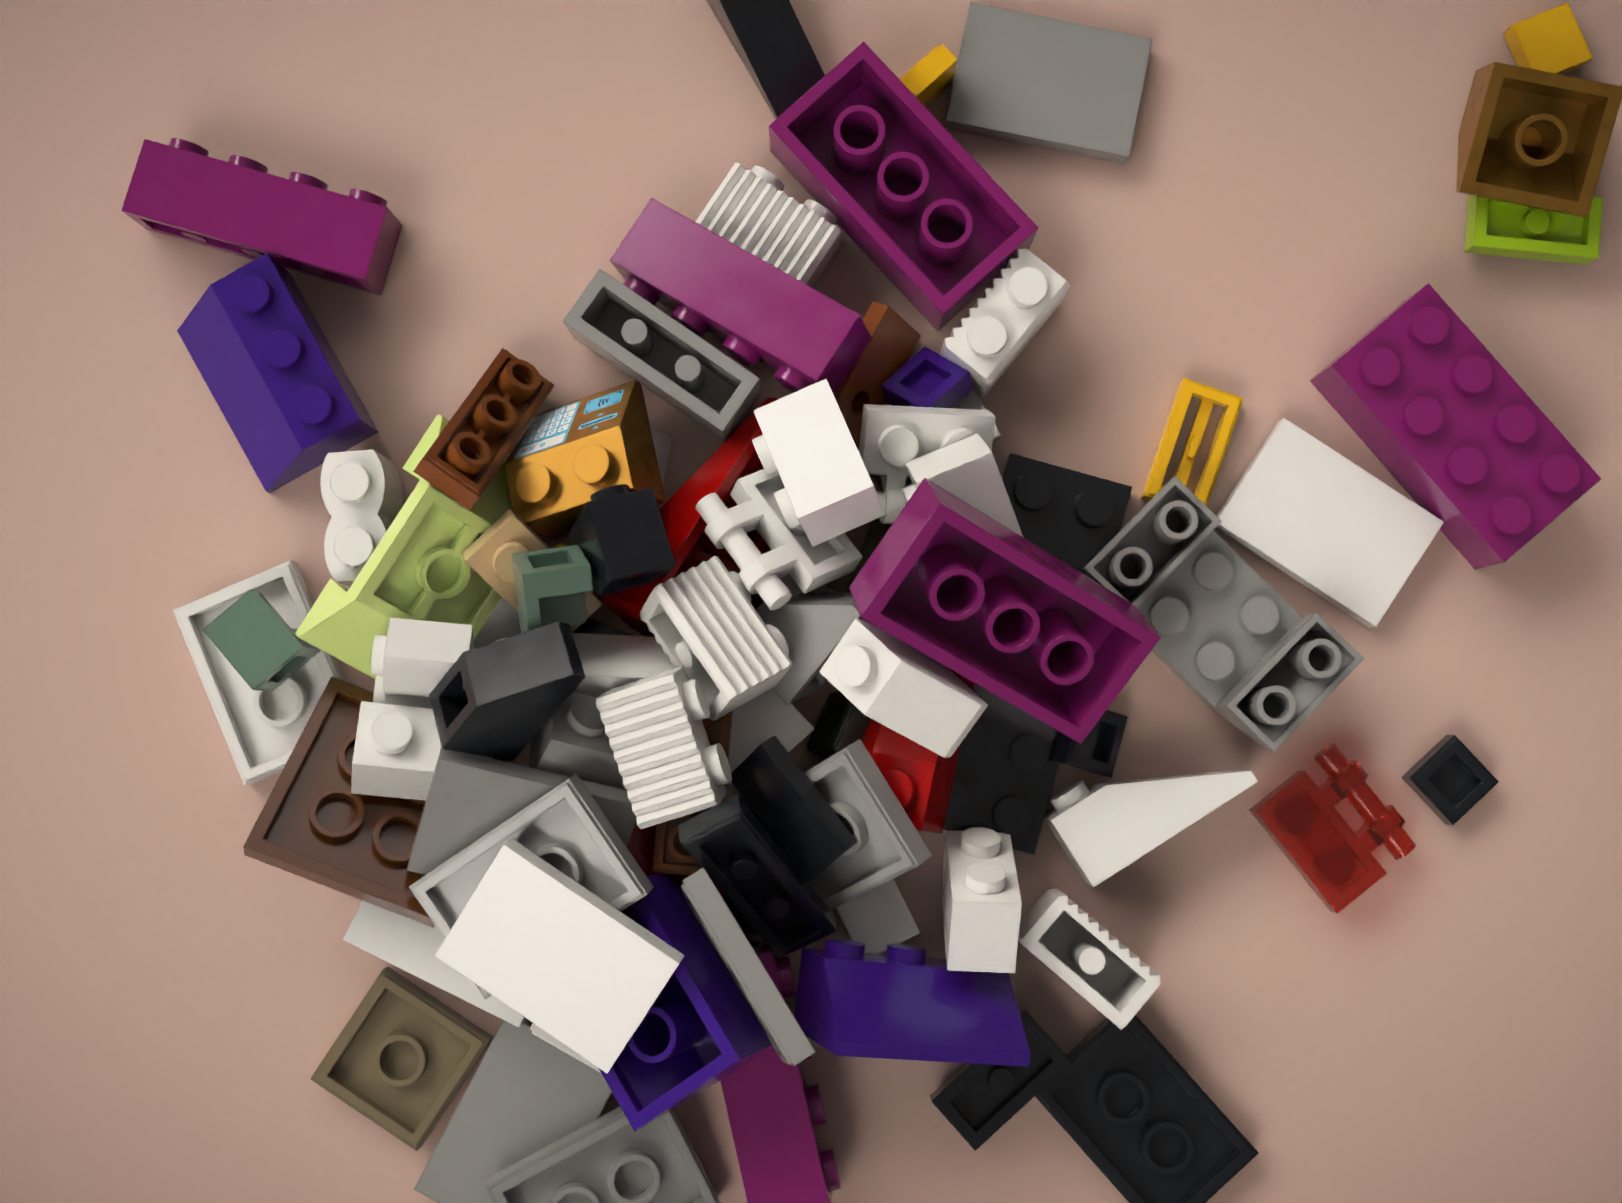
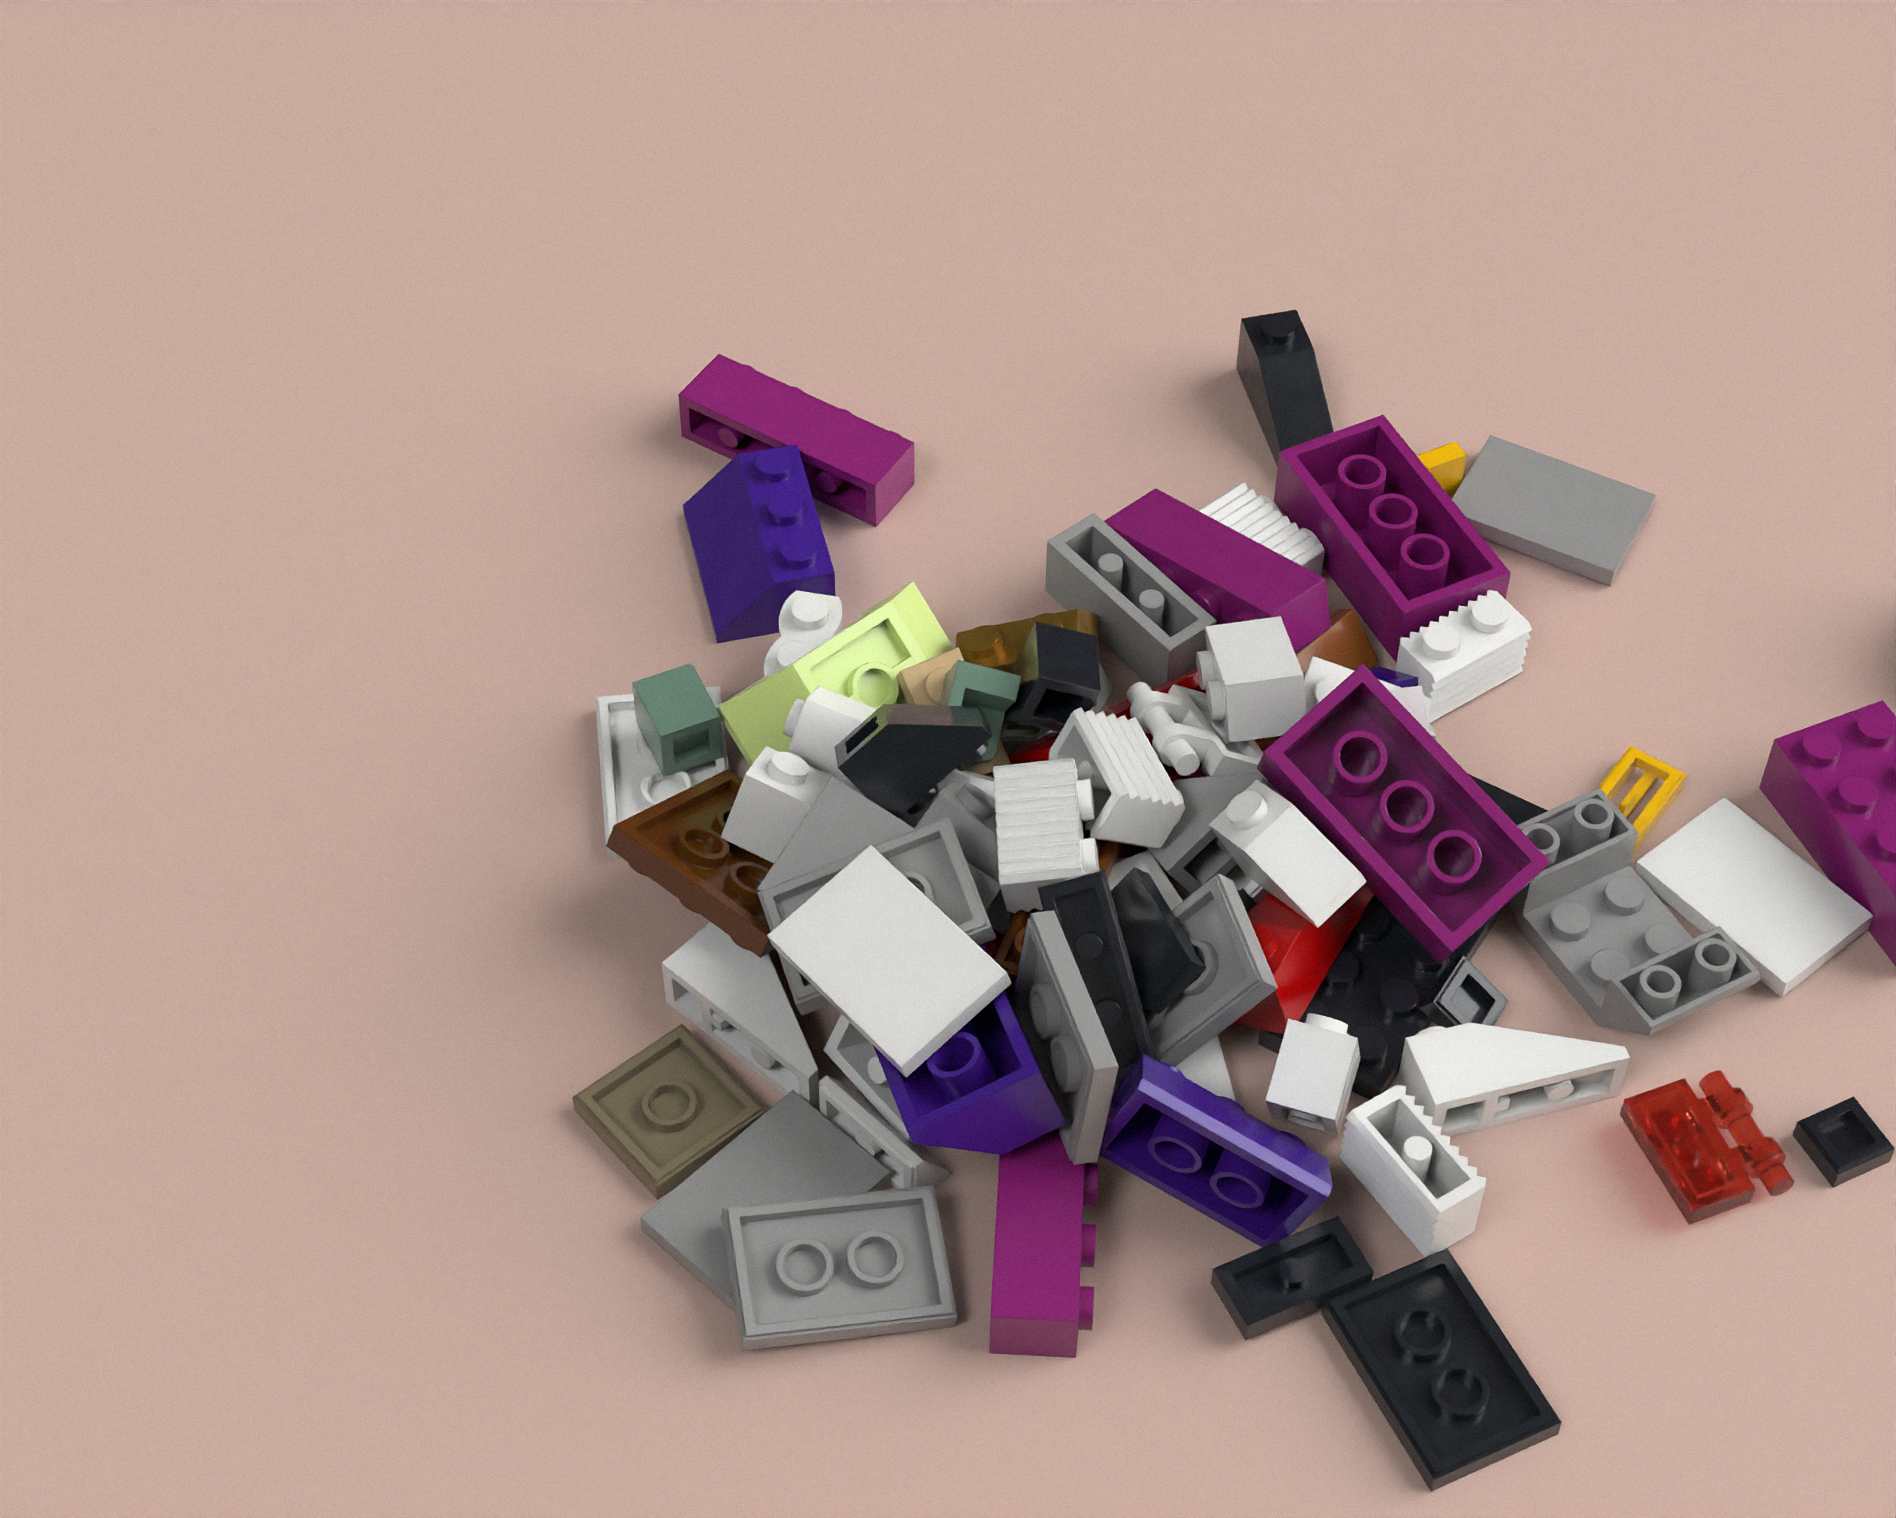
camera: 15 degrees right, 35 degrees down
(484, 429) = (948, 600): dark orange tile -> none

